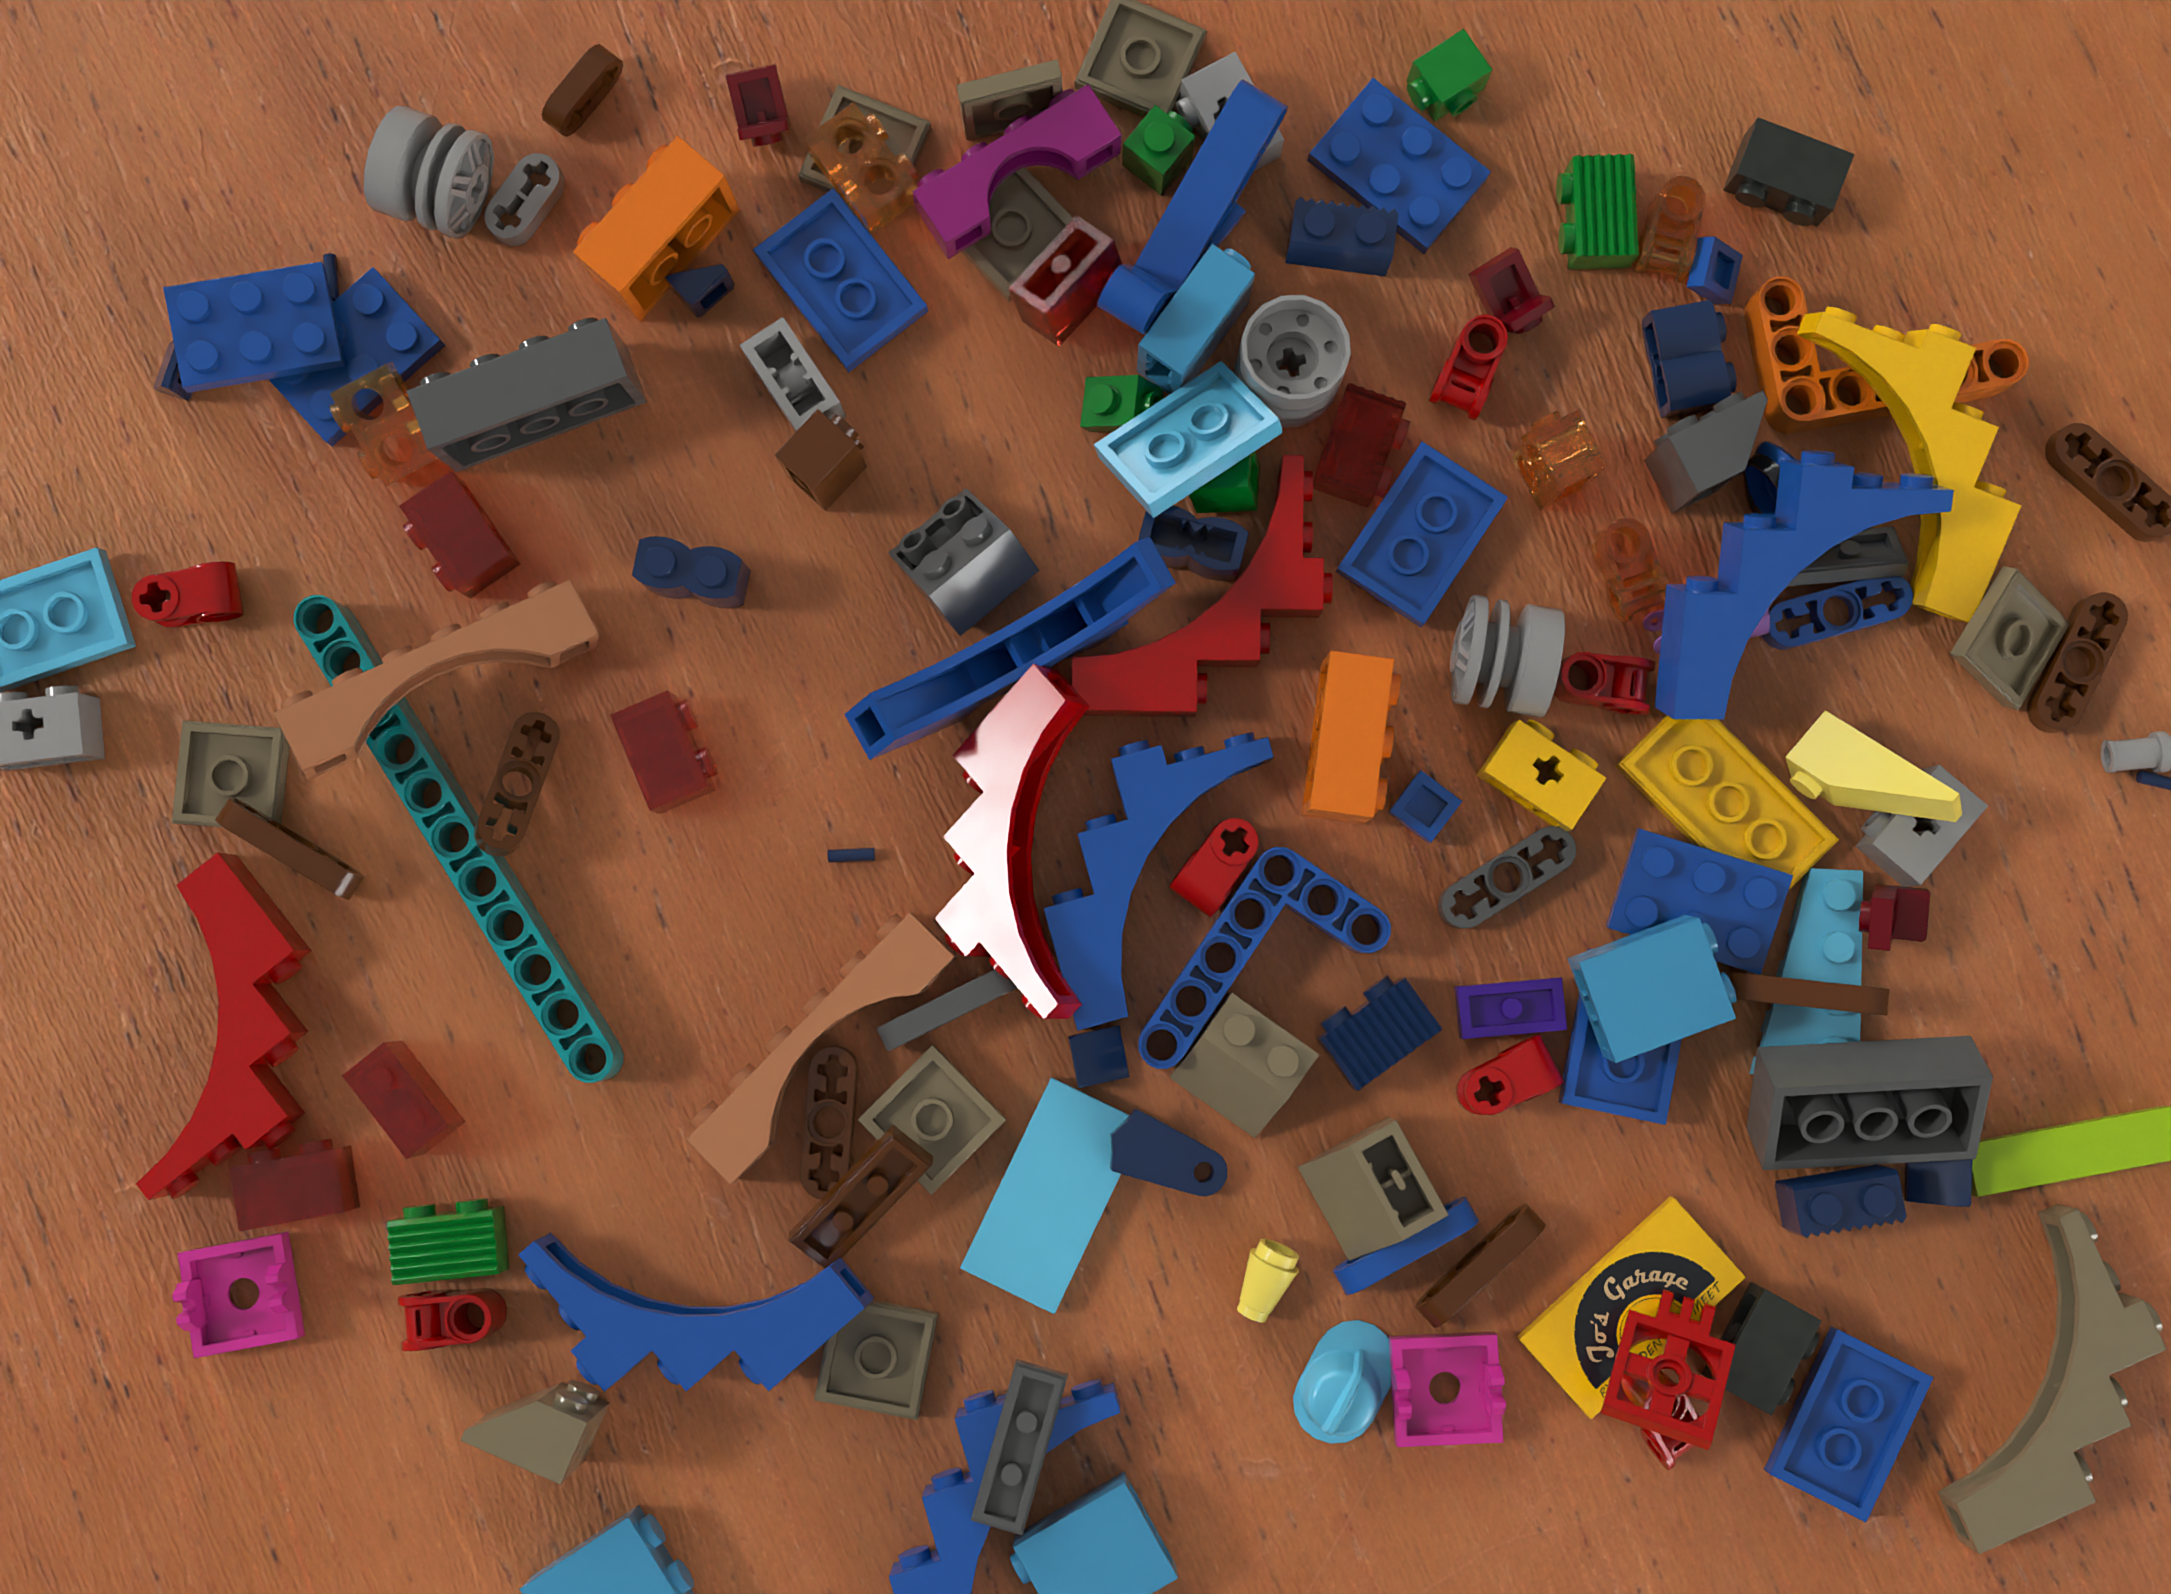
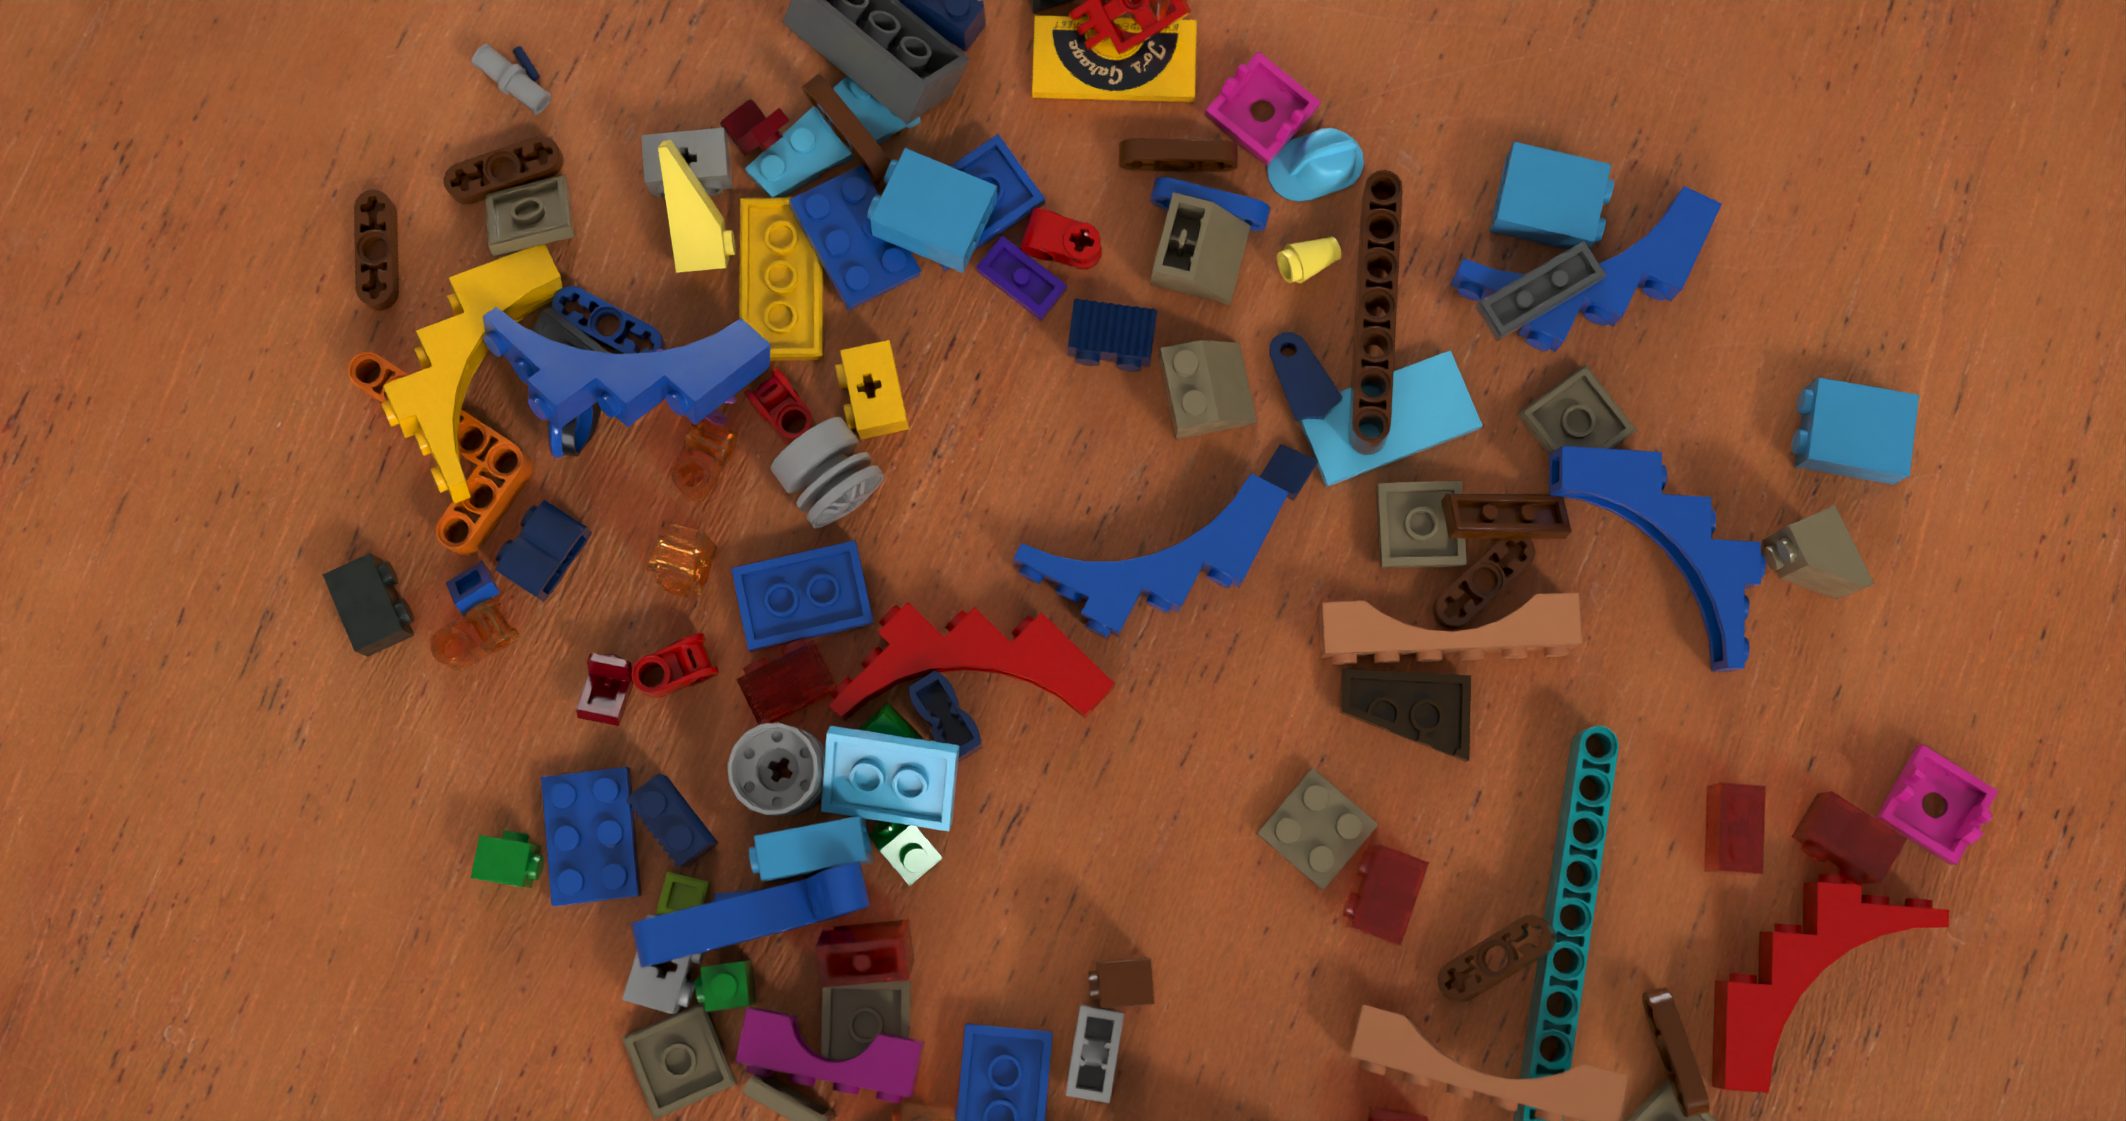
camera: 140 degrees left, 5 degrees down
(441, 1317) = (1825, 677): red piece -> none
(447, 1244) = (1781, 718): green brick -> none
(703, 572) = (1276, 1003): dark blue brick -> none
(777, 756) = (1317, 829): none -> dark tan plate
(790, 945) = (1412, 705): none -> dark brown wing
(851, 855) = (1326, 727): dark blue piece -> none
(944, 1009) = (1350, 580): dark grey beam -> none
(964, 561) = (1093, 840): dark grey slope -> none
(990, 668) = (1121, 748): blue arch -> none
(994, 838) = (1235, 649): arch -> none
(1168, 1306) = (1380, 293): none -> reddish brown beam
(1212, 874) = (1118, 515): red piece -> none
(1244, 941) = (1139, 454): blue beam -> none
(1271, 190) = (681, 893): none -> lime tile
(1350, 738) = (967, 510): orange brick -> none
(1424, 806) = (958, 436): blue plate -> none
(1532, 845) = (918, 356): dark grey beam -> none
(1599, 212) = (503, 689): green brick -> none
(1707, 454) = (592, 478): dark grey slope -> none

